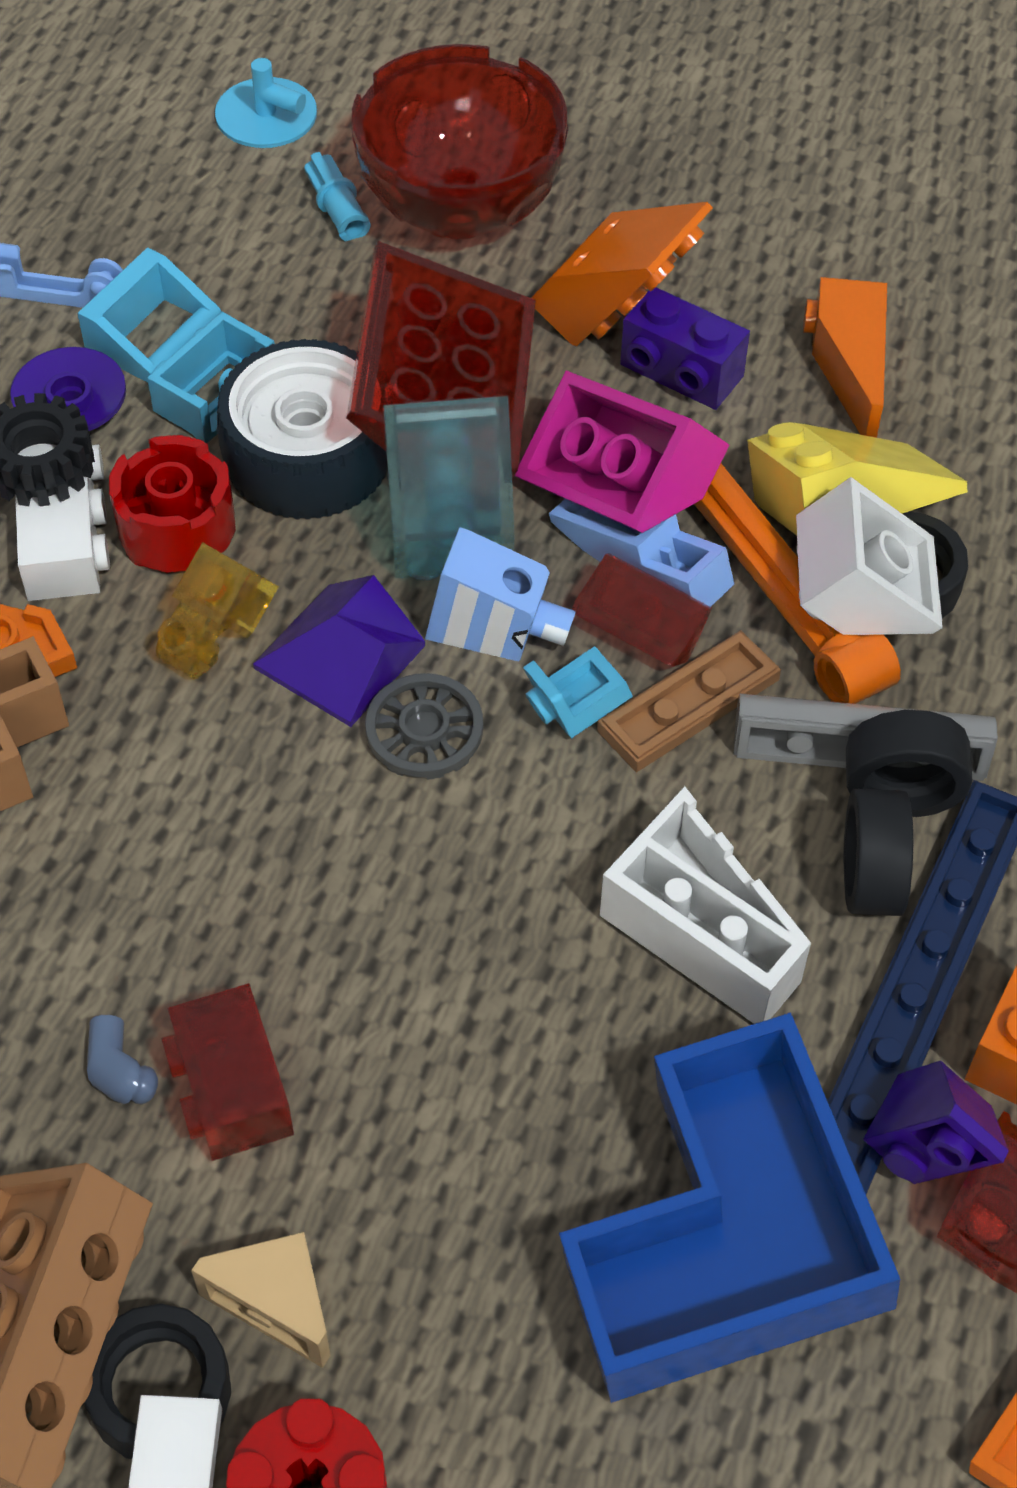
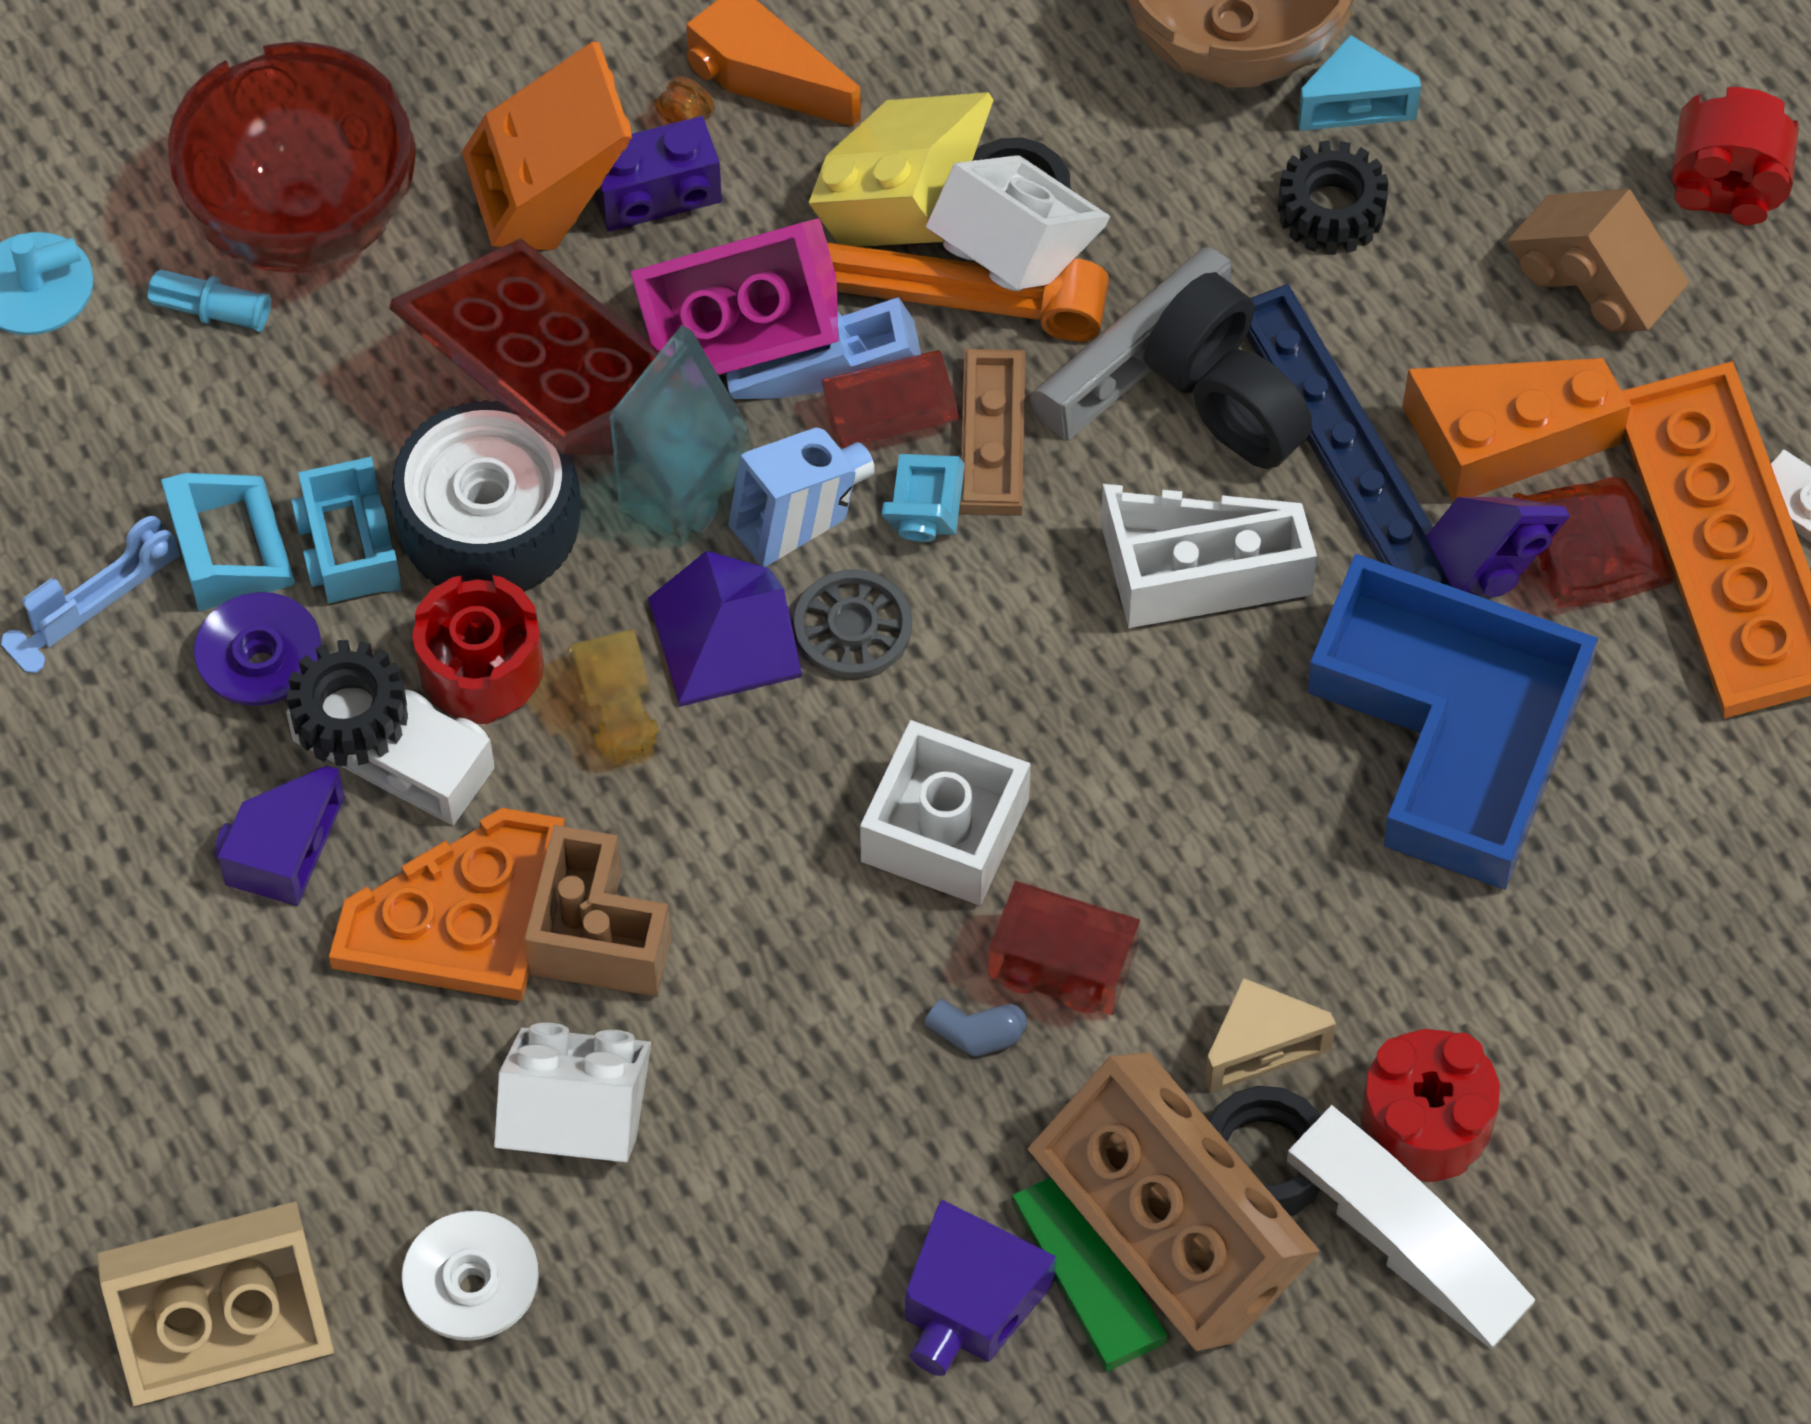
camera: 50 degrees left, 5 degrees up
(287, 895) = (945, 812): none -> white brick
(765, 330) = (683, 101): none -> clear orange bush

